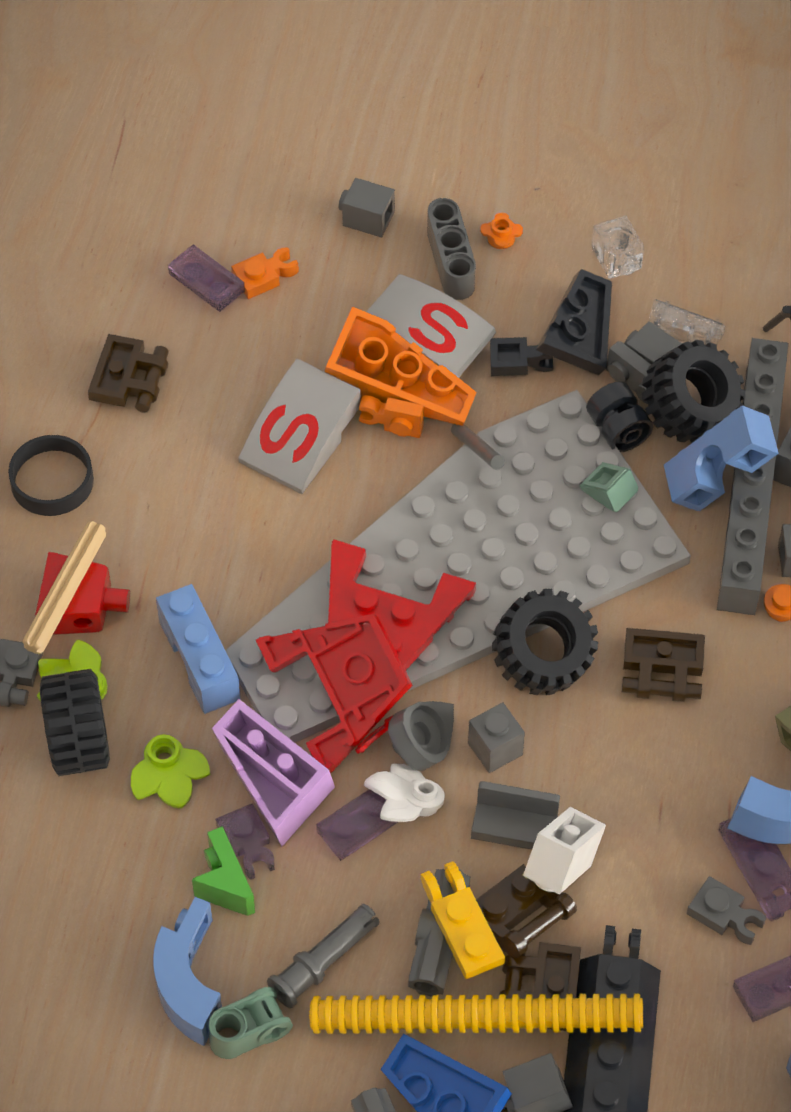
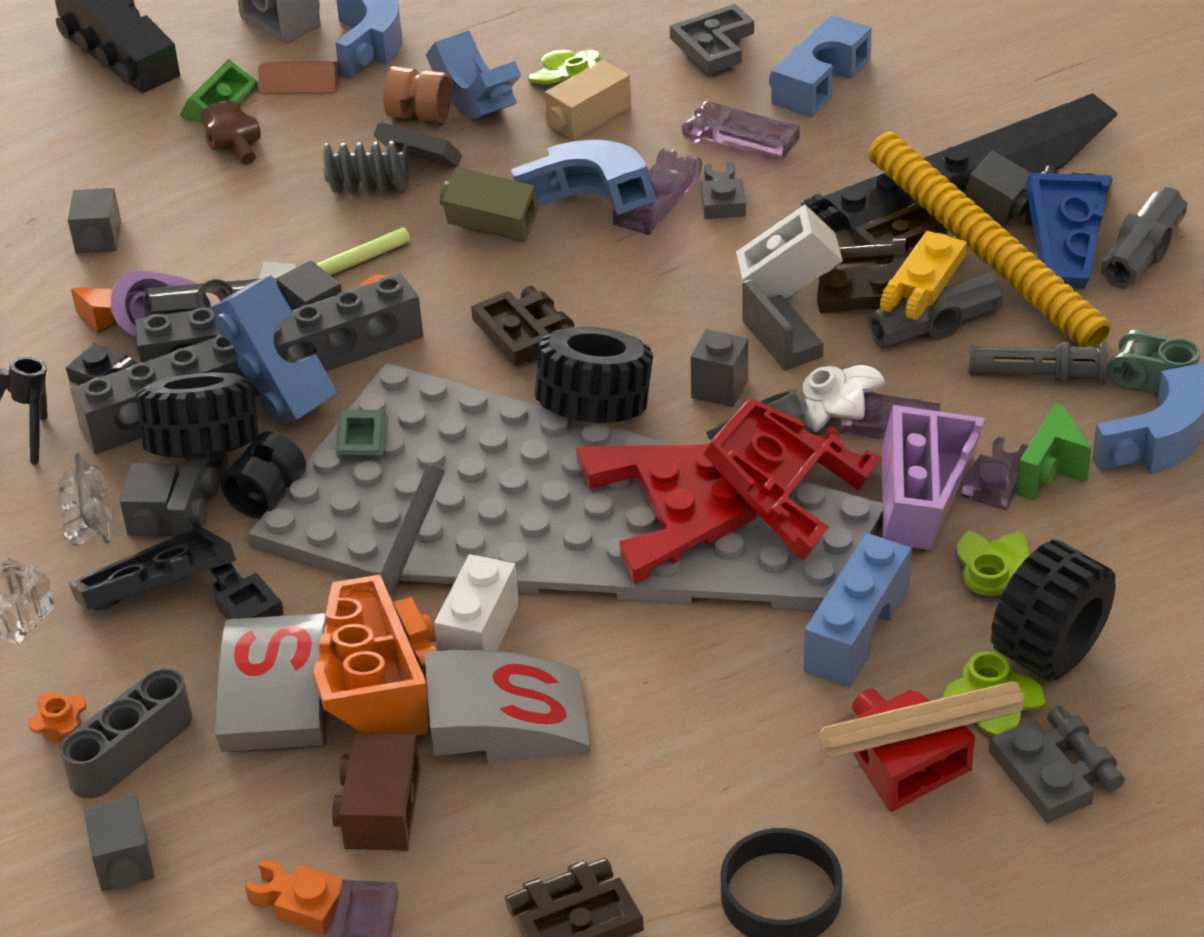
camera: 125 degrees left, 15 degrees down
(292, 332) = (378, 791): none -> reddish brown brick
(385, 454) = (478, 606): none -> white brick

